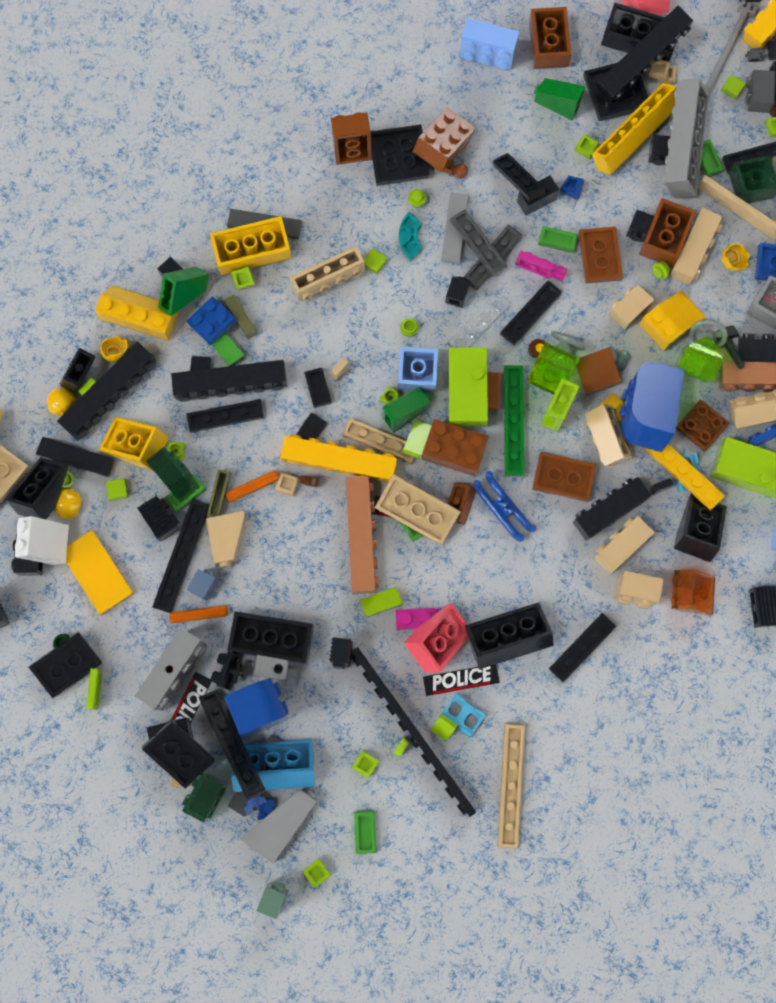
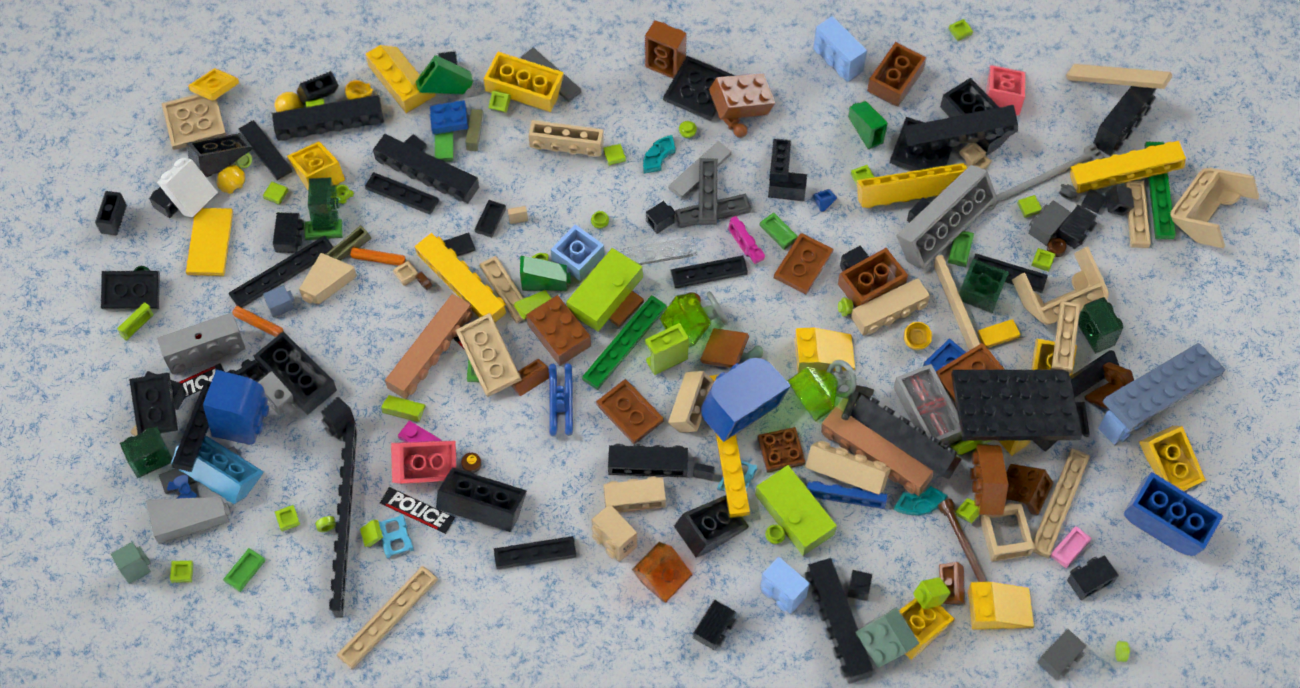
camera: 35 degrees right, 15 degrees down
(473, 609) = (471, 462): none -> reddish brown tile
(631, 307) = (794, 316): tan brick -> none
(752, 498) = (775, 534): none -> lime plate

